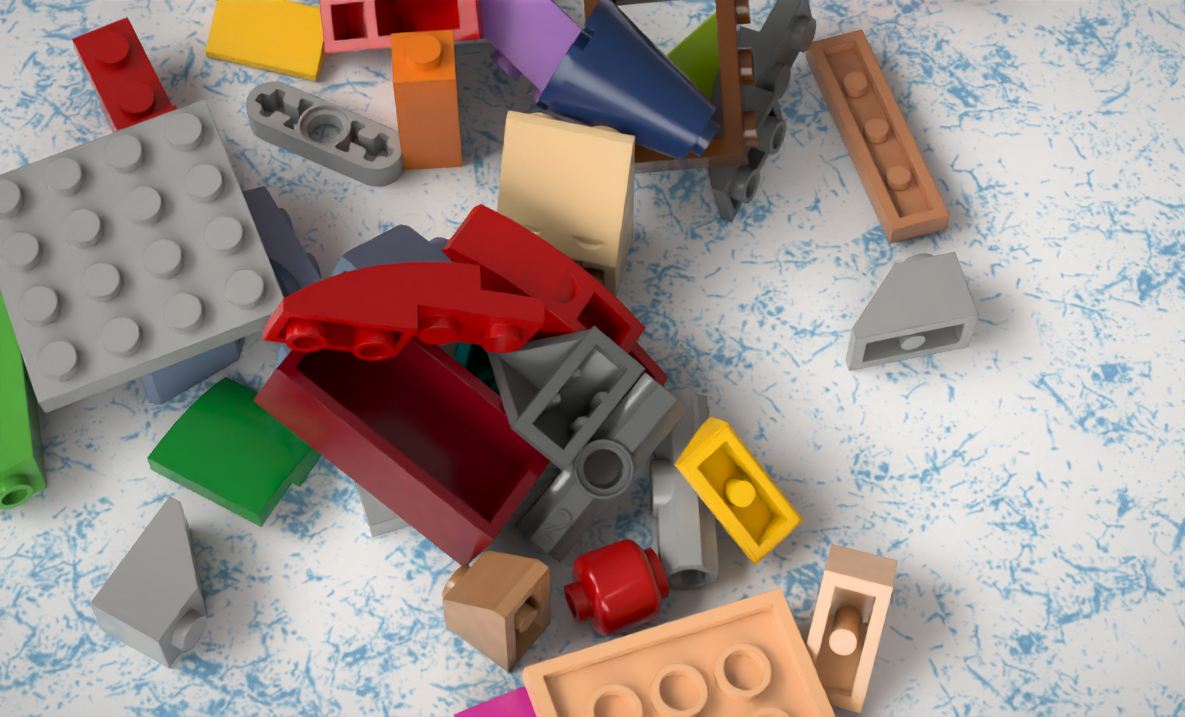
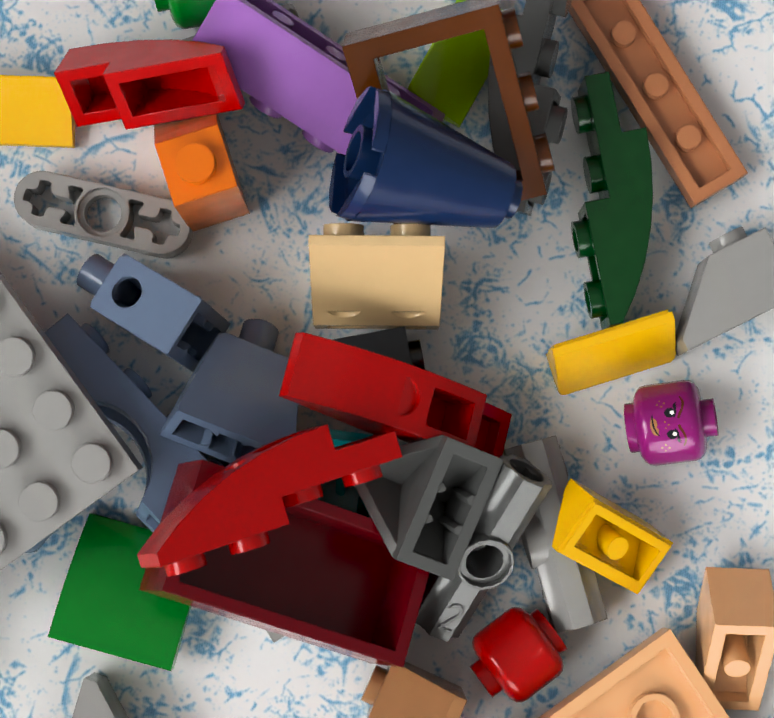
camera: 15 degrees left, 25 degrees up
(343, 195) = (151, 307): none -> sand blue torso
(783, 341) = (613, 352): none -> yellow slope
(811, 219) = (618, 225): none -> dark green slope
(825, 411) = (670, 422): none -> magenta head

